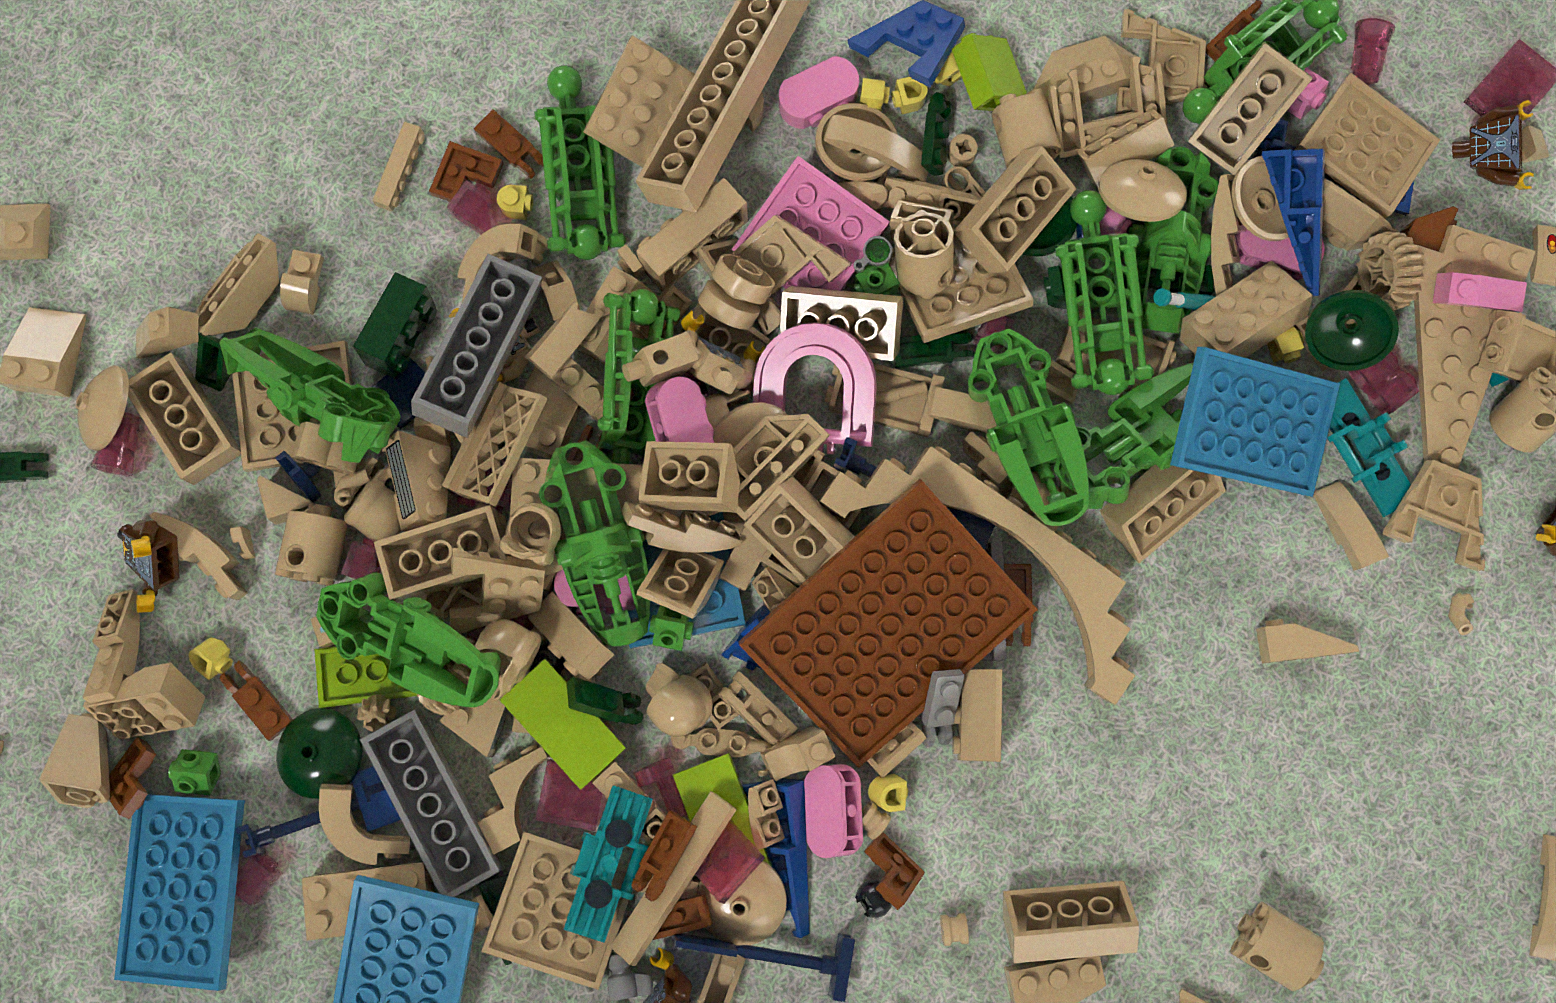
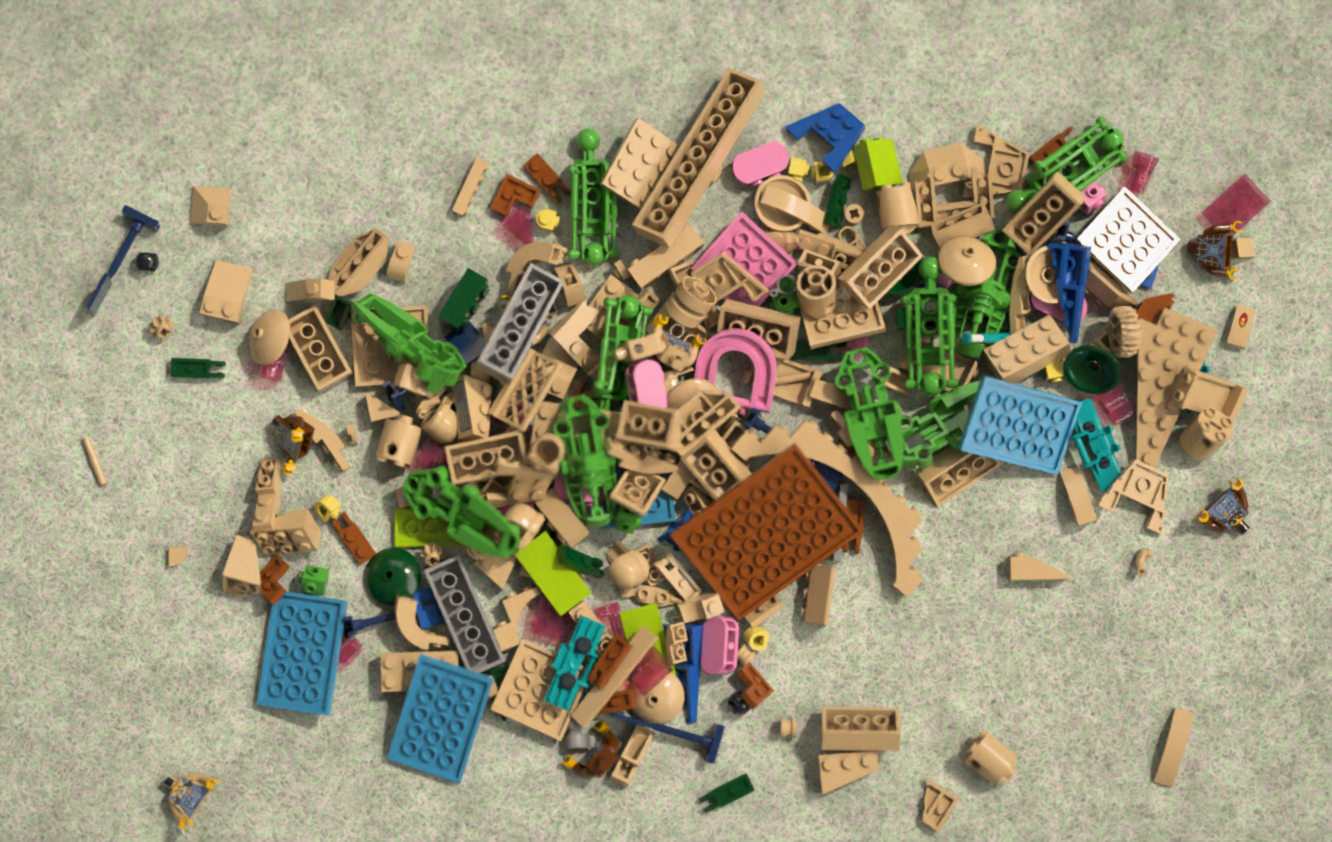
camera: 10 degrees right, 5 degrees up
(941, 705) = (795, 586): light grey hinge -> none
(1479, 291) = (1176, 355): bright pink slope -> none

